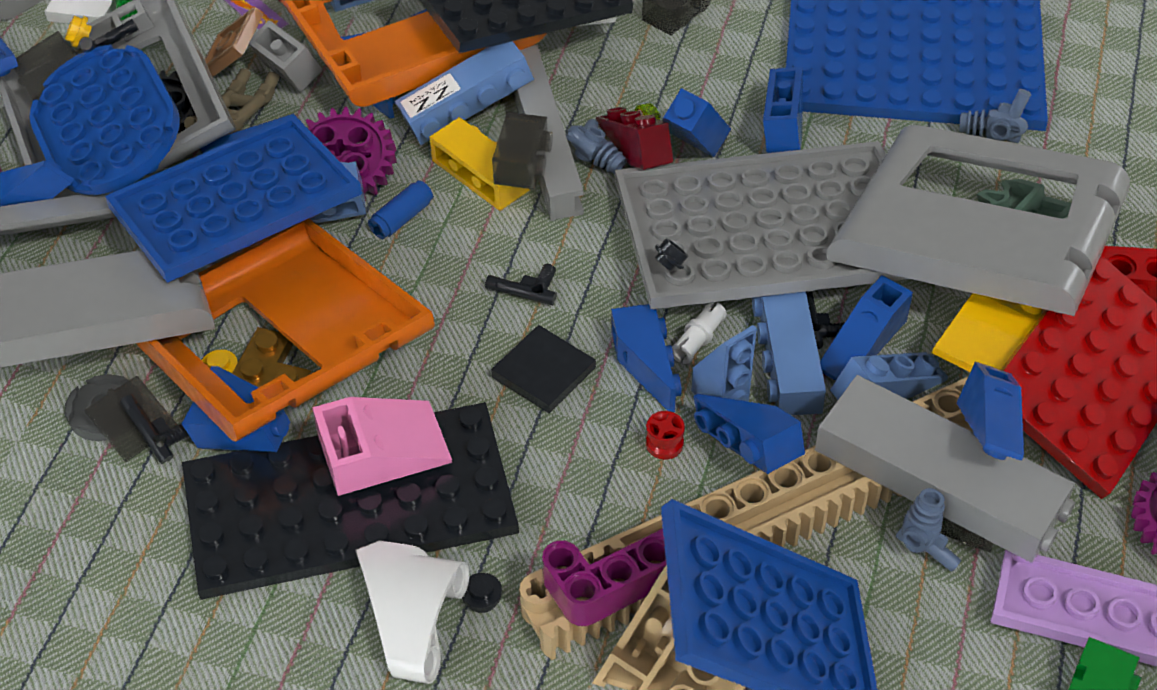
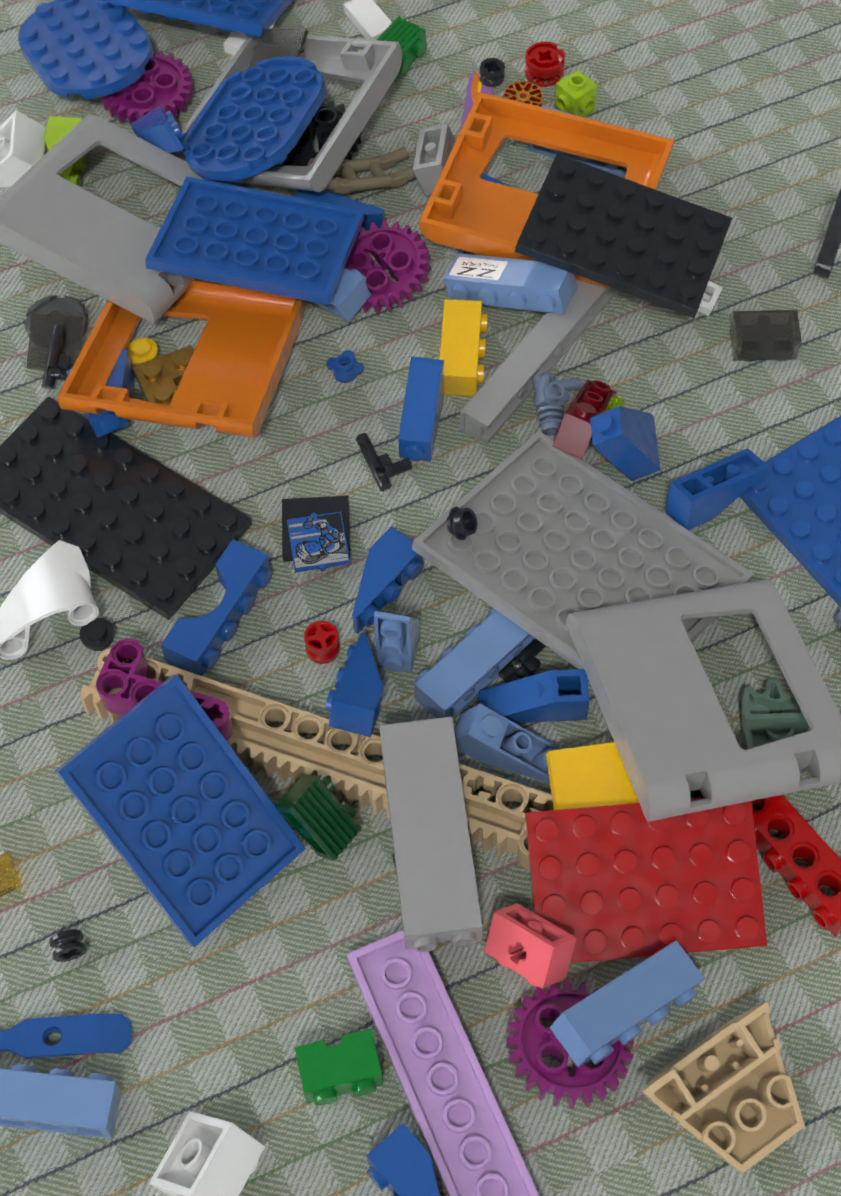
camera: 50 degrees right, 10 degrees up
(77, 30) = (311, 38): yellow plate -> none
(108, 38) = (324, 58): black hose -> none
(232, 41) = (414, 122): medium nougat tile -> none
(378, 440) = (144, 482): bright pink slope -> none
(400, 209) = (372, 337): blue piece -> none
(406, 245) = (345, 373): none -> blue plate
(516, 219) = (421, 409): none -> blue slope
(521, 150) = (476, 360): clear smoke brick -> none
(540, 448) = (196, 642): none -> blue arch
(564, 371) = (318, 542): none -> piece
(698, 332) = (435, 595): white pin -> none
(847, 540) = (319, 816): none -> dark green brick
(923, 527) = (374, 858): sand blue piece -> none
(994, 411) = (485, 827): blue slope -> none
(1122, 482) = (529, 945): none -> coral brick

